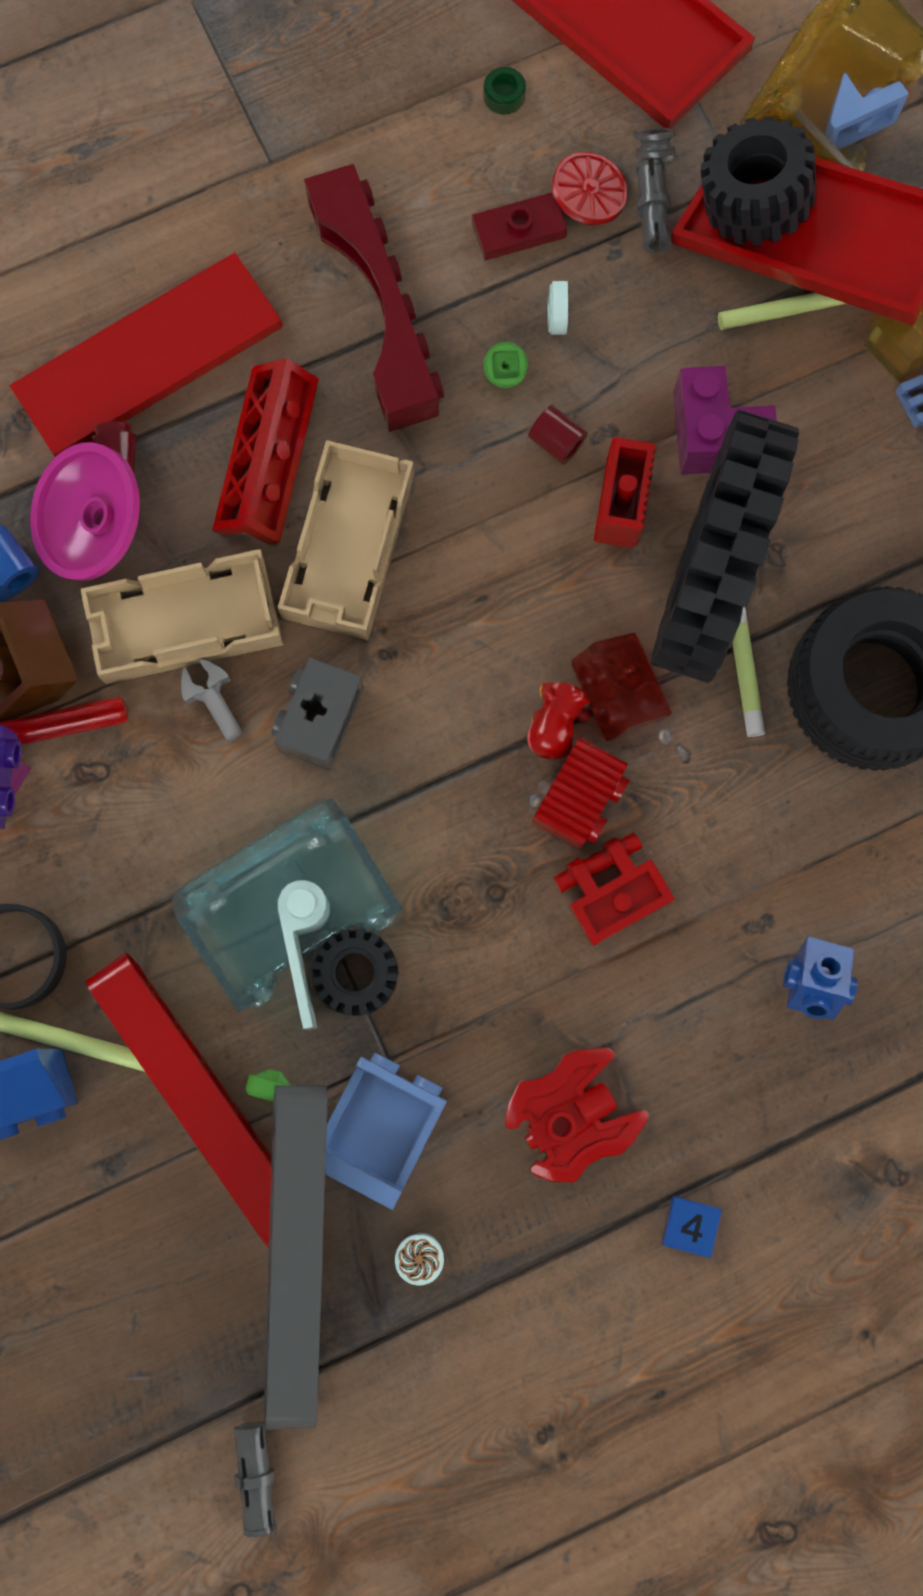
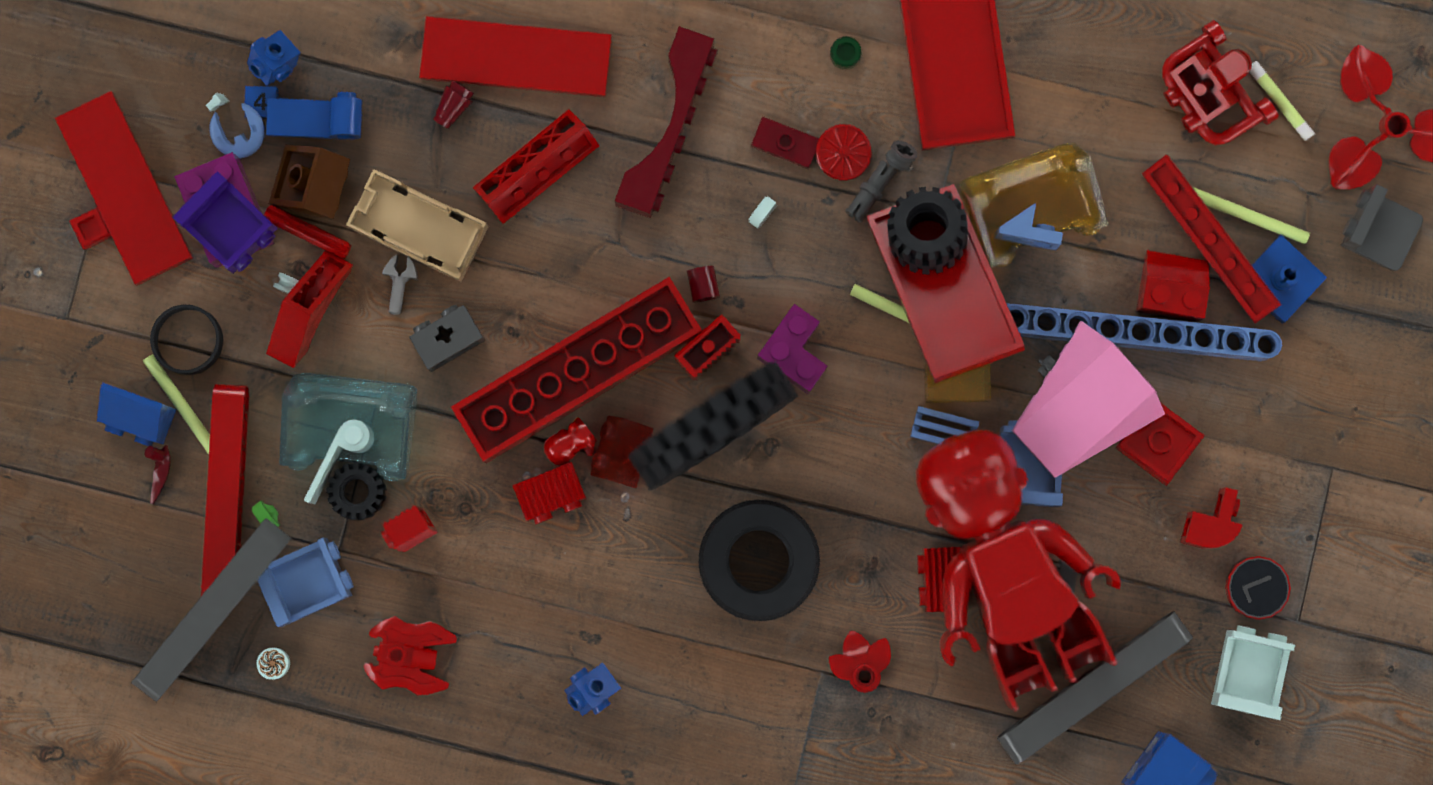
camera: 40 degrees right, 5 degrees up
(84, 511) = (408, 127): dark pink dish -> none
(84, 797) = (285, 283): none -> light aqua bush
(99, 1135) = (161, 471): none -> dark red bar
(125, 809) = (305, 307): none -> red arch
(254, 1479) = (107, 703): dark grey pin -> none
(347, 540) = (539, 252): tan piece -> none
(455, 963) = (408, 529): none -> red brick
(498, 631) = (576, 370): none -> red brick
(505, 365) = (708, 220): bright green tile -> none
(620, 901) = (526, 566): red plate -> none
(691, 1226) = (423, 759): blue tile -> none
(747, 679) = (698, 495): yellowish green bar -> none

